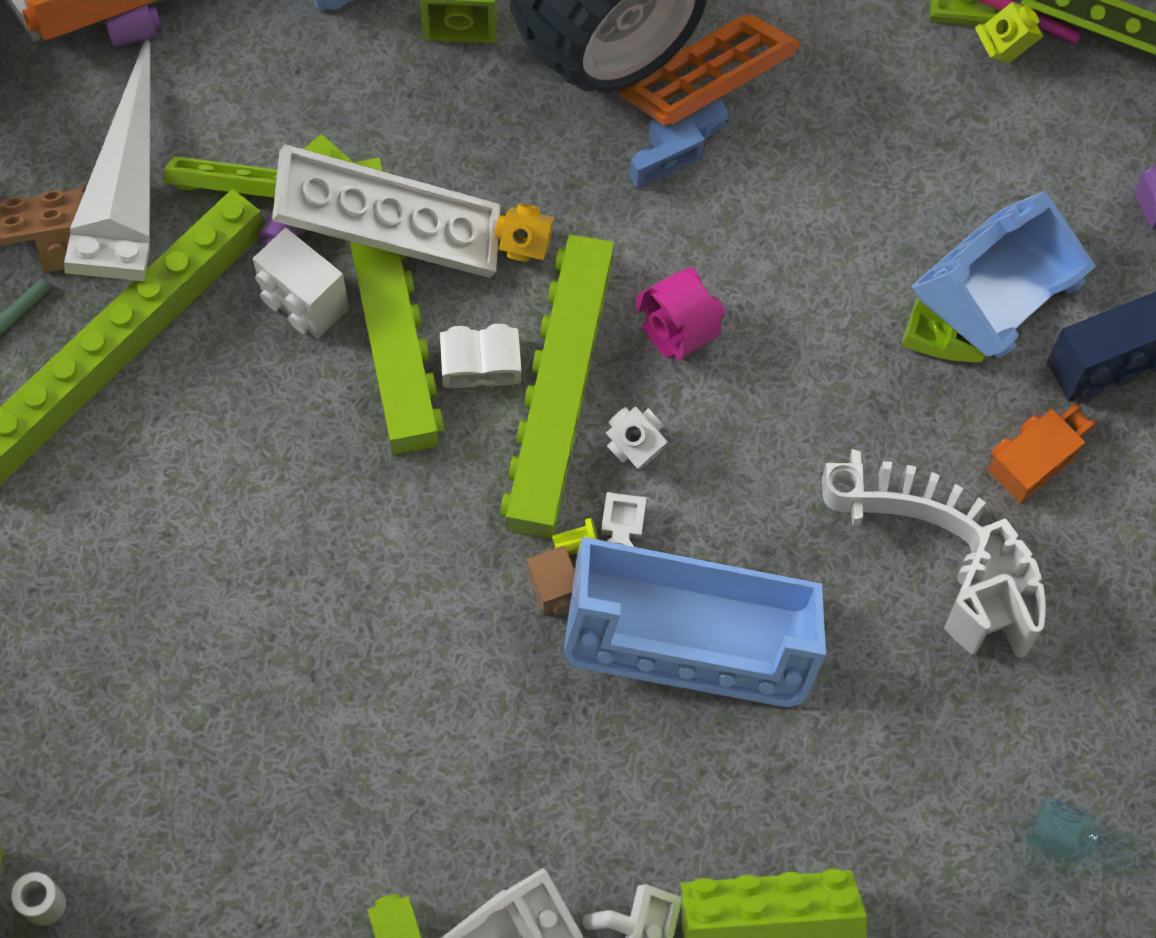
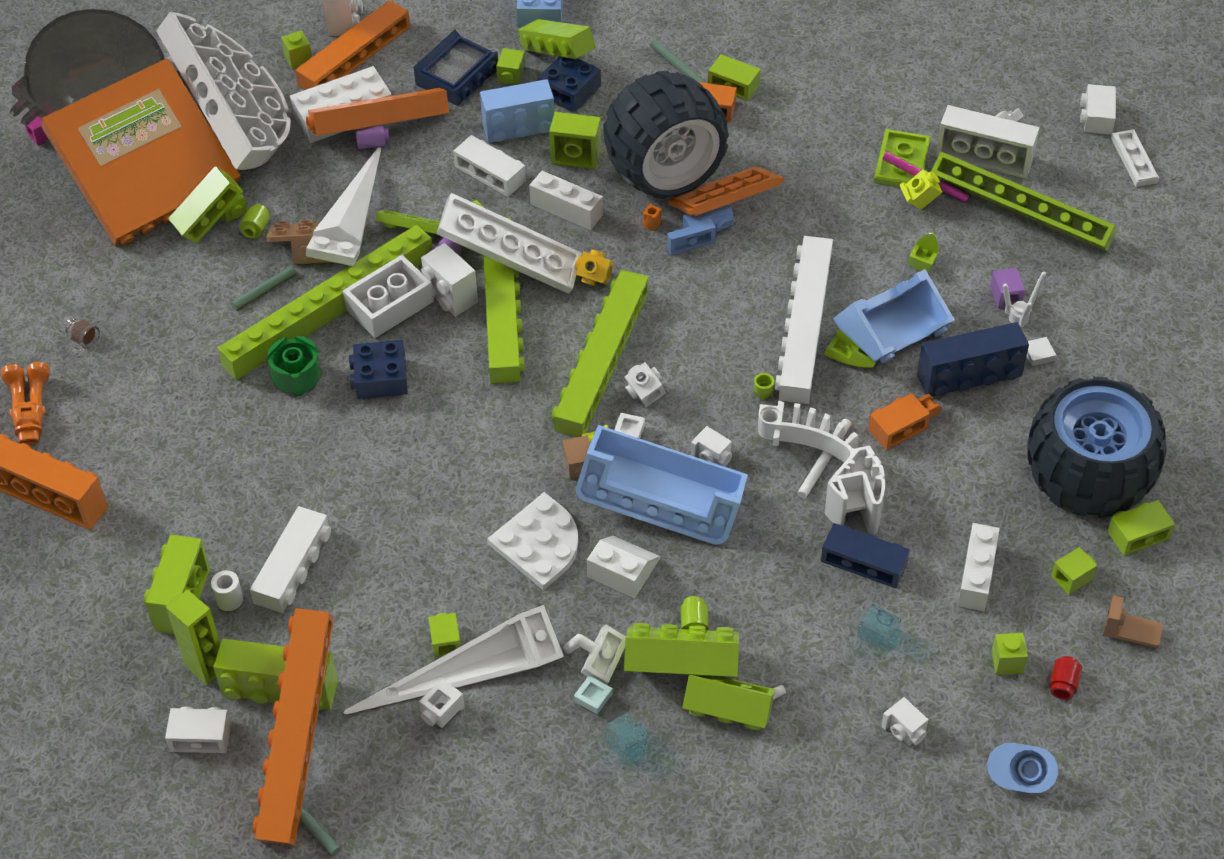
camera: 10 degrees right, 15 degrees down
(77, 467) = (294, 365): none -> green brick
(130, 824) = (290, 560): none -> white brick
(207, 322) = (388, 296): none -> white brick
(214, 459) = (378, 369): none -> dark blue brick
(329, 58) = (489, 165): none -> white brick
(460, 110) = (566, 200): none -> white brick
(480, 356) = (554, 333): white brick -> none
(515, 735) = (539, 541): none -> white plate
(599, 134) = (652, 217): none -> orange hose
(651, 763) = (621, 565): none -> white slope
(680, 314) = (683, 319): dark pink brick -> none
(758, 539) = (712, 447): none -> white brick
(777, 845) = (694, 612): none -> lime brick
(819, 406) = (763, 386): none -> lime hose
(867, 288) = (805, 320): none -> white brick
(928, 536) = (818, 468): none -> white bar
(1021, 702) = (865, 555): none -> dark blue brick
(1029, 148) = (924, 253): none -> lime plate

